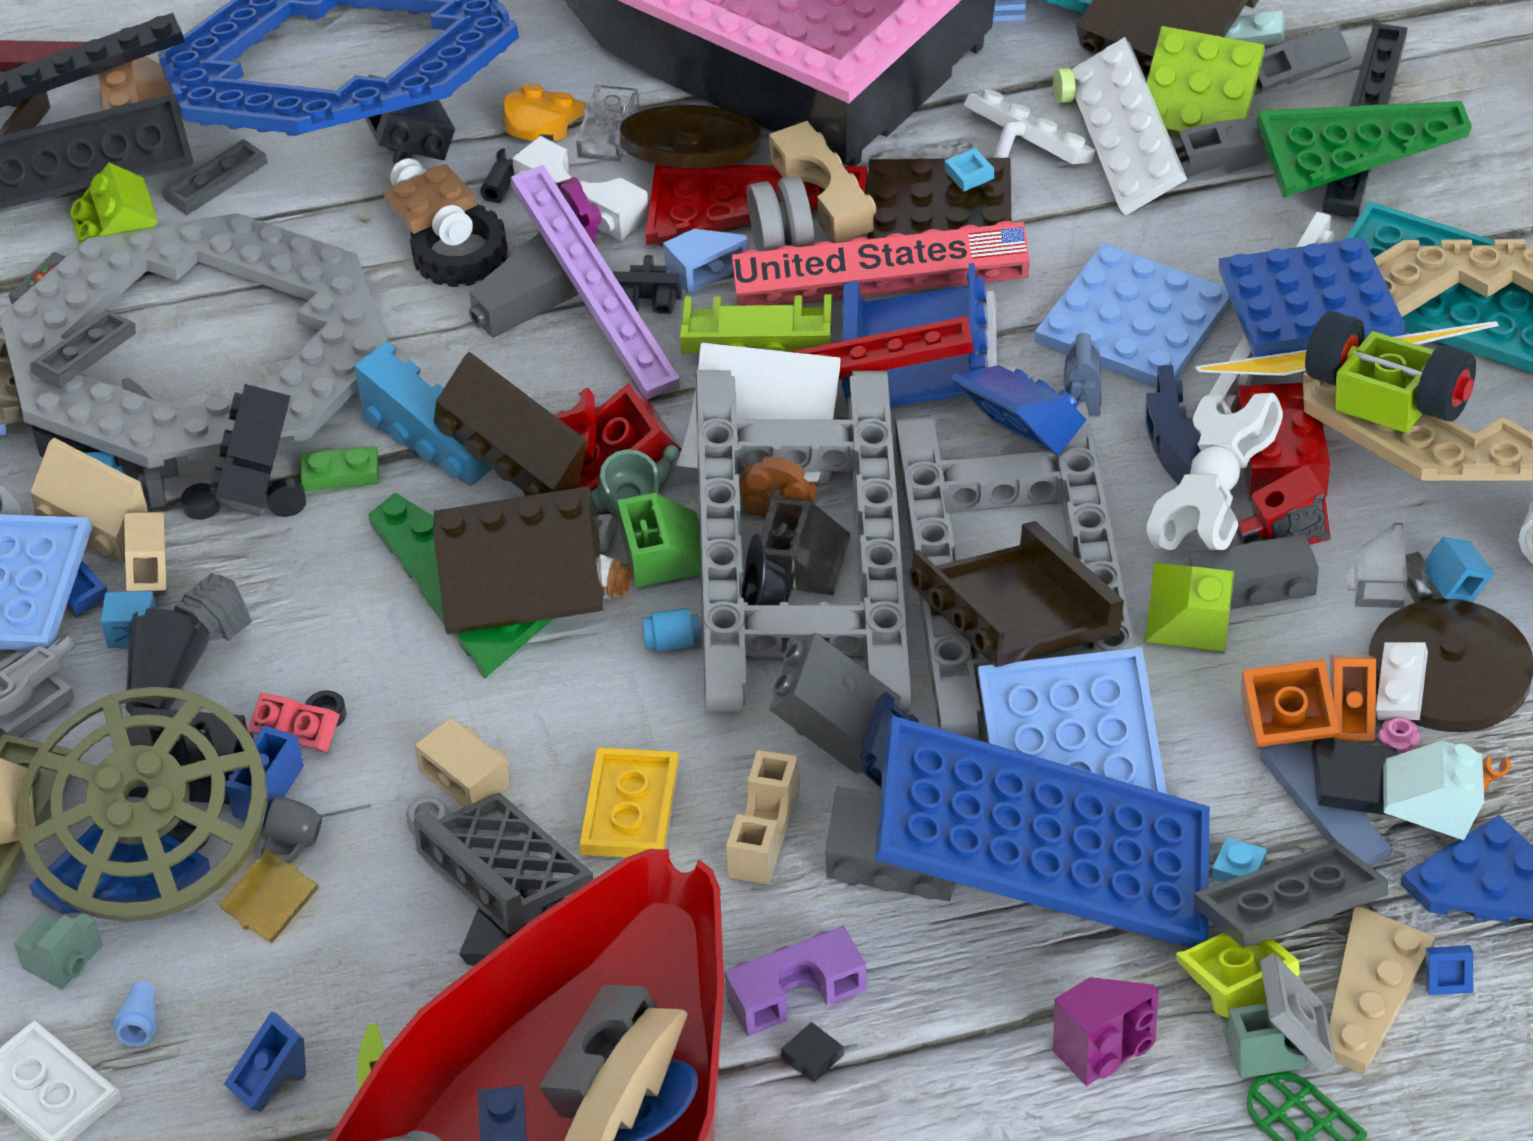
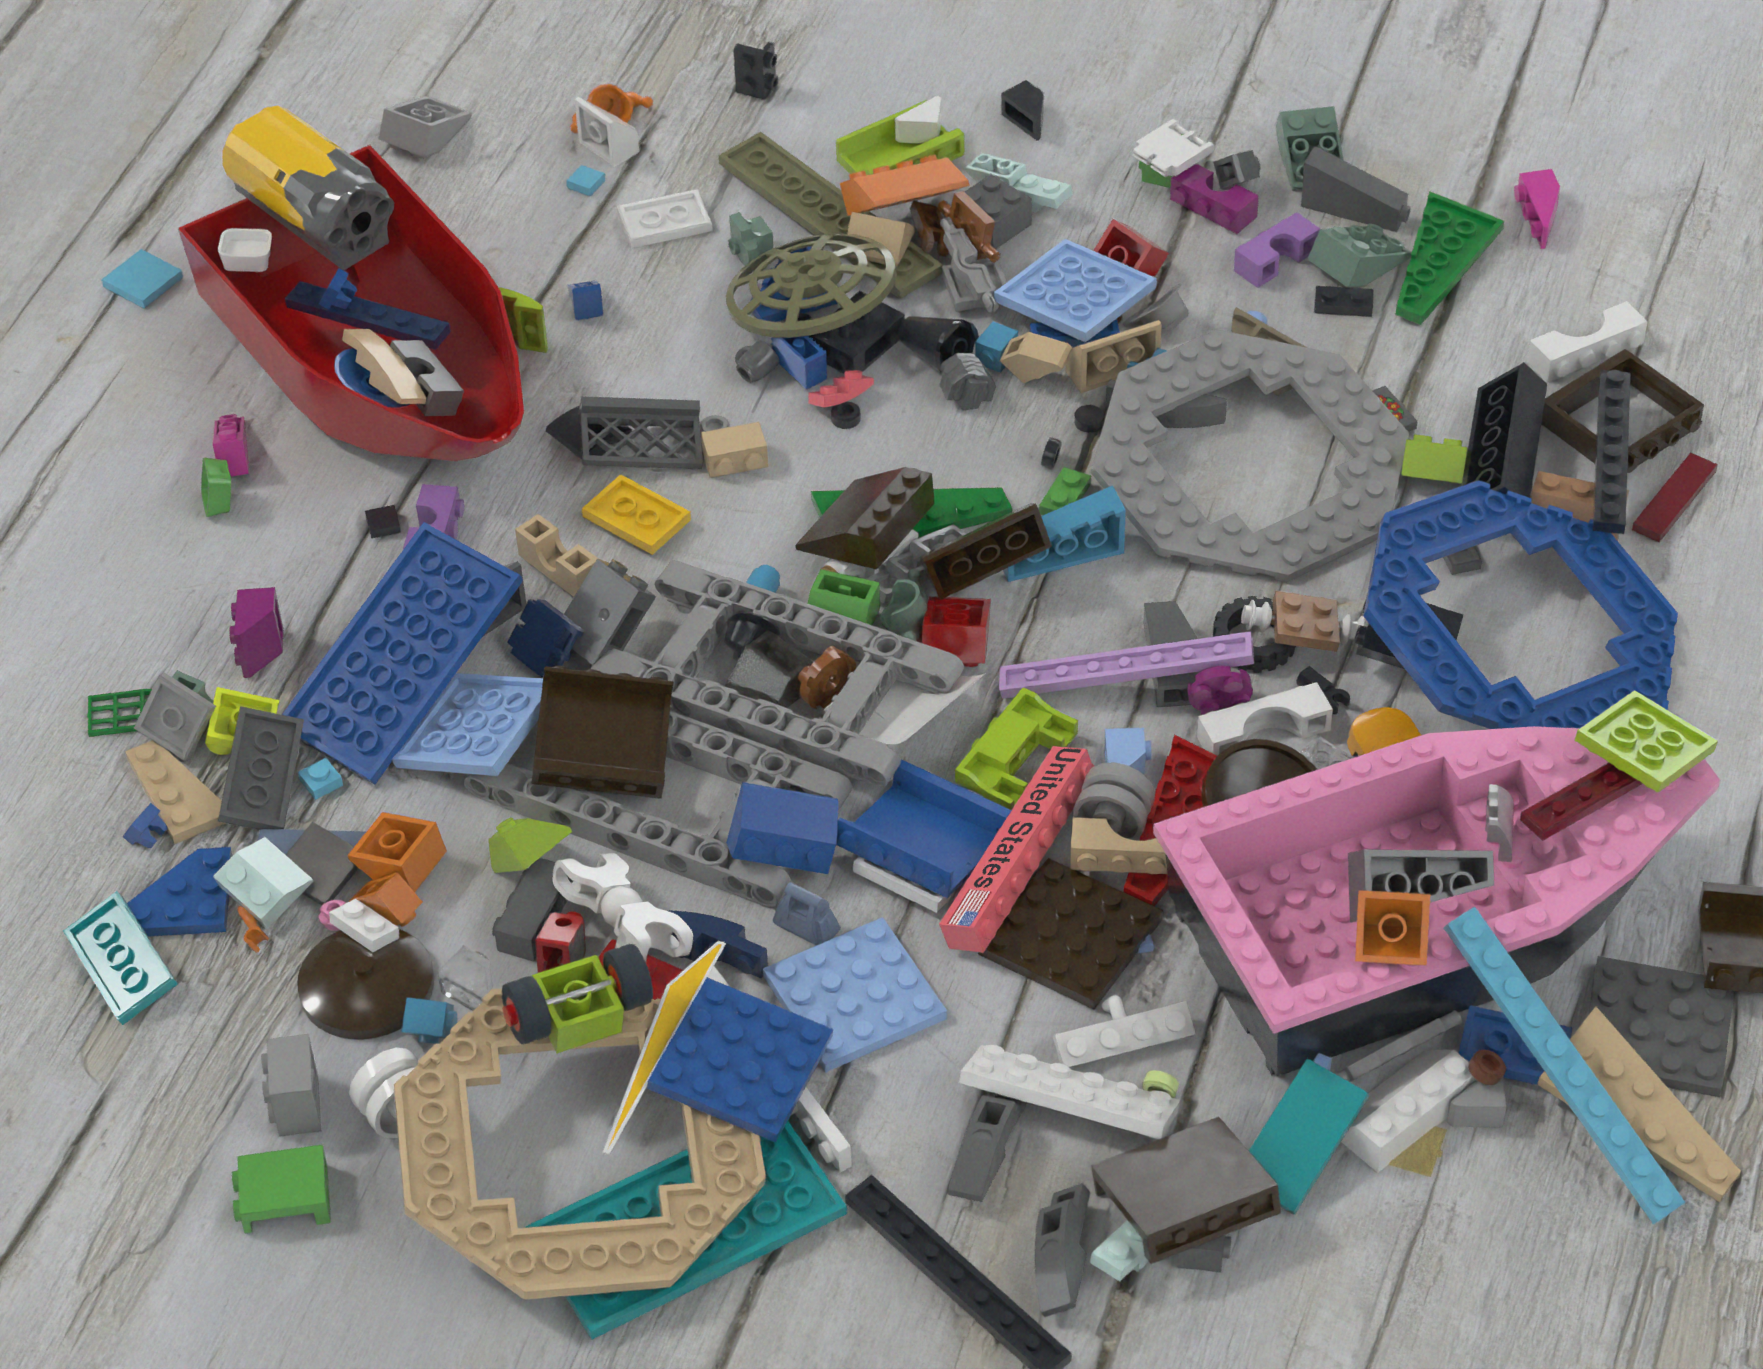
camera: 120 degrees right, 0 degrees up
(83, 348) = (1256, 373): dark grey tile -> none
(137, 1017) = (675, 261): light blue cone -> none
(249, 449) = (1075, 414): black piece -> none
(269, 896) = (714, 340): clear yellow piece -> none
(583, 420) = (975, 601): red slope -> none
(651, 283) = (1118, 711): black hips -> none
(900, 347) = (907, 769): red plate -> none
(969, 169) = (1080, 945): medium azure plate -> none
(1202, 78) = (1070, 1160): lime plate -> none
(1335, 142) = (917, 1209): green wing -> none
(1415, 583) = (449, 994): clear smoke tile -> none

